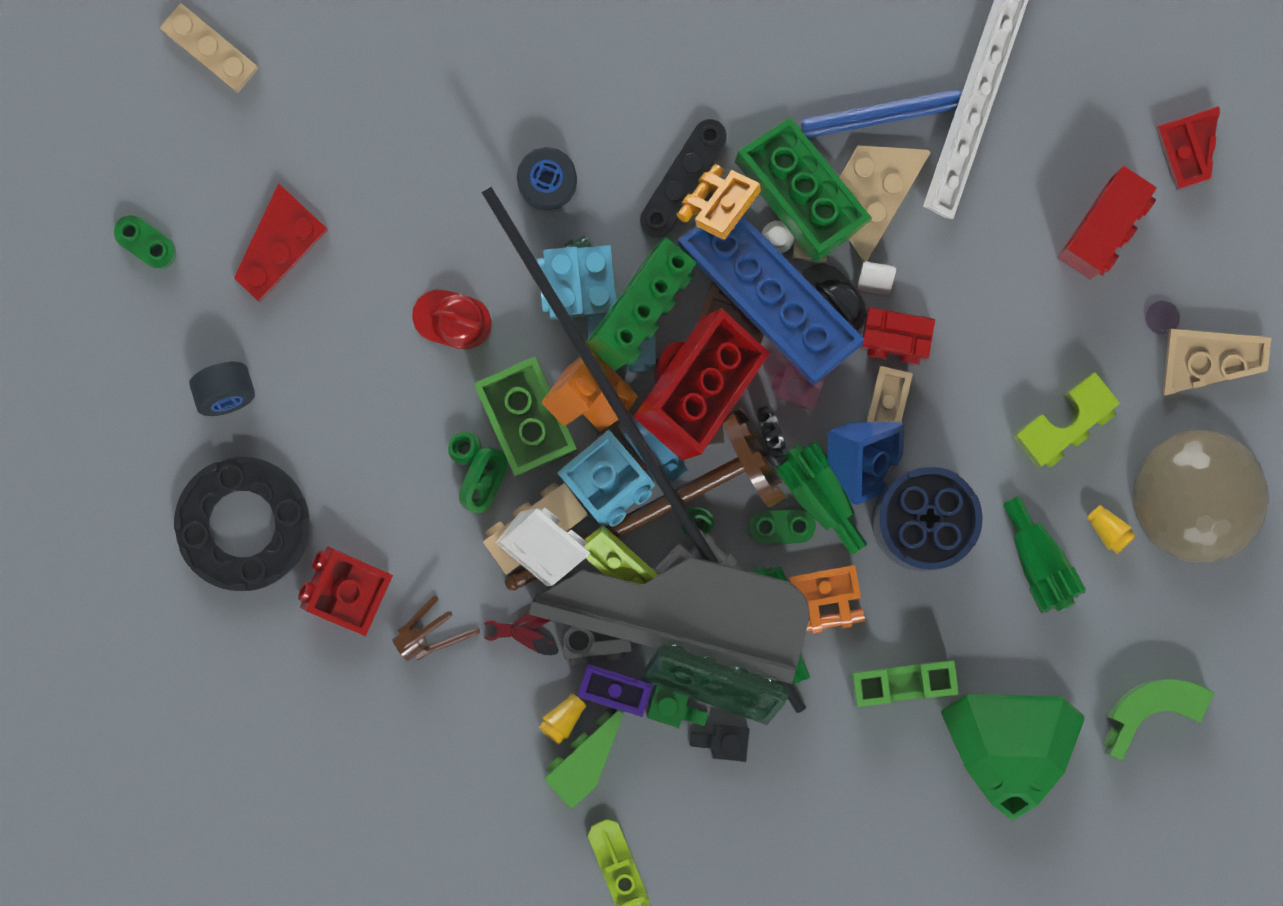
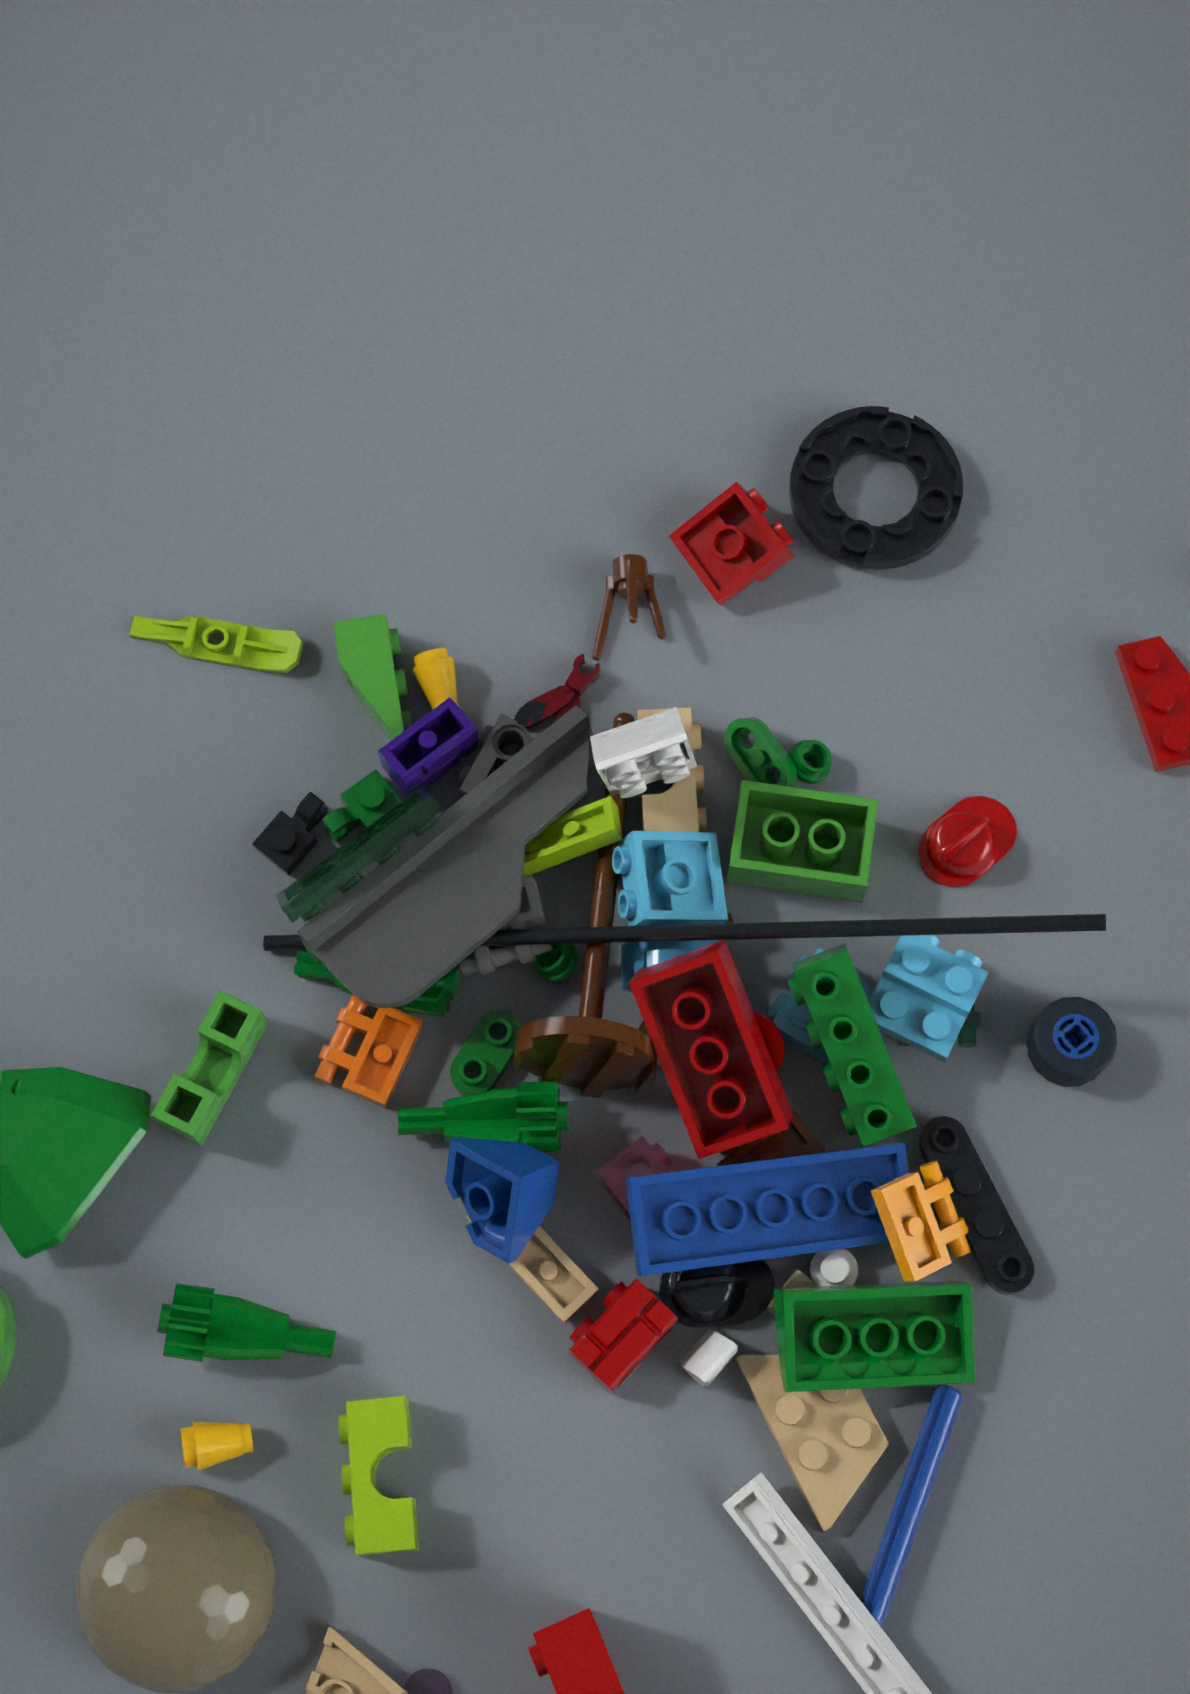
camera: 130 degrees right, 15 degrees down
(222, 388) = (1041, 547): black wheel -> none
(579, 394) = (792, 898): orange brick -> none
(771, 432) = (603, 1105): black gear -> none
(907, 538) = (384, 1252): dark blue brick -> none

